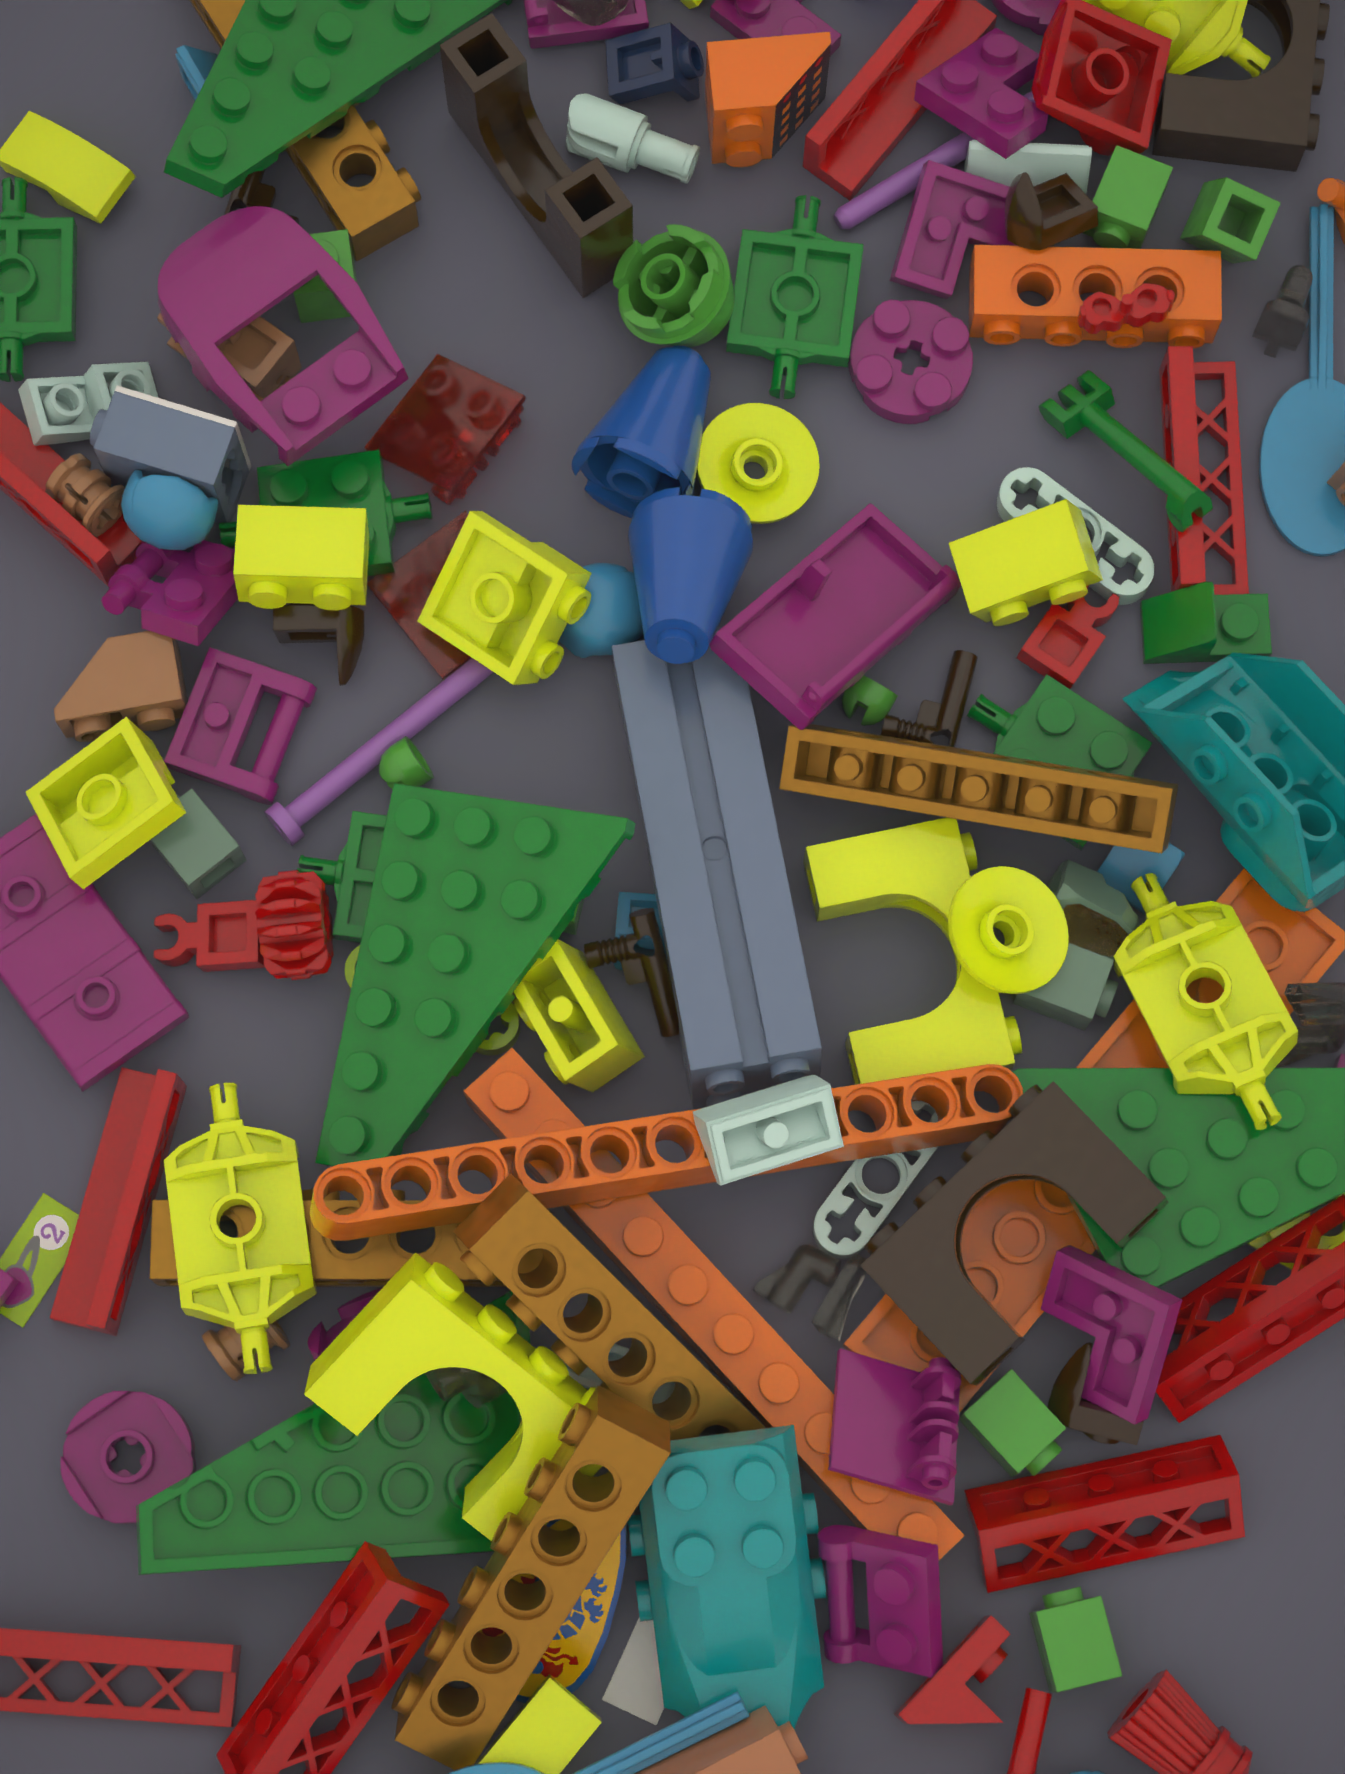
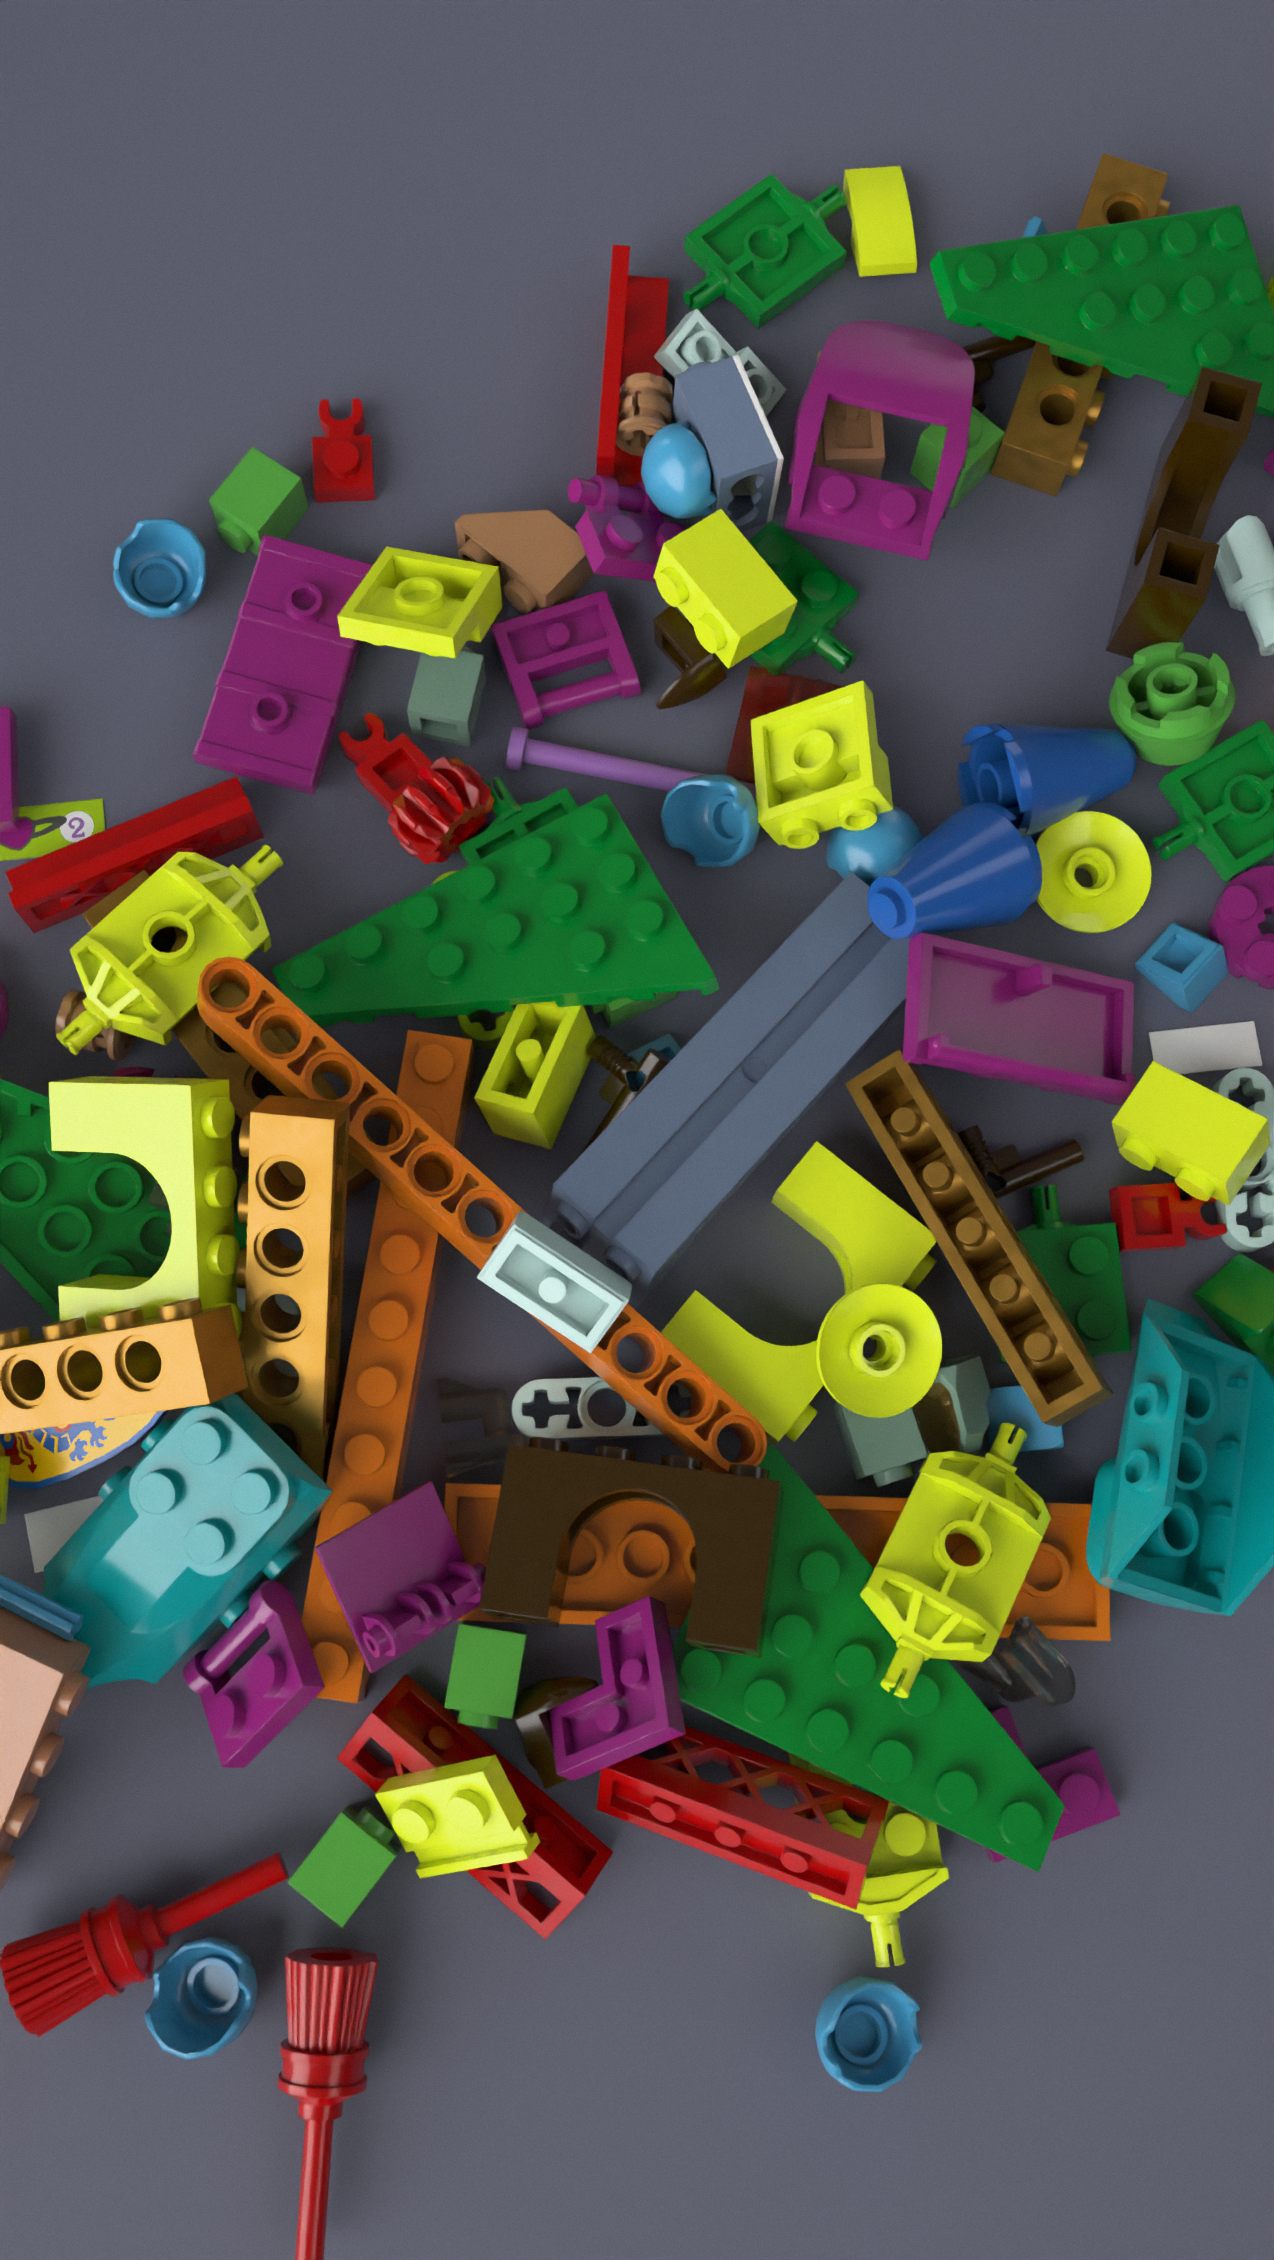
camera: 45 degrees right, 0 degrees up
(404, 765) = (635, 799): bright green hinge -> none
(448, 426) = (918, 627): clear red hinge -> none
(477, 718) = (711, 819): none -> dark azure hair
(870, 696) = (981, 1100): bright green hinge -> none
(886, 453) = (1184, 965): none -> dark azure slope
(945, 1695) = (222, 1794): red slope -> none
(963, 491) = (1207, 1048): none -> white sticker
(1107, 1526) = (457, 1816): none -> neon yellow plate

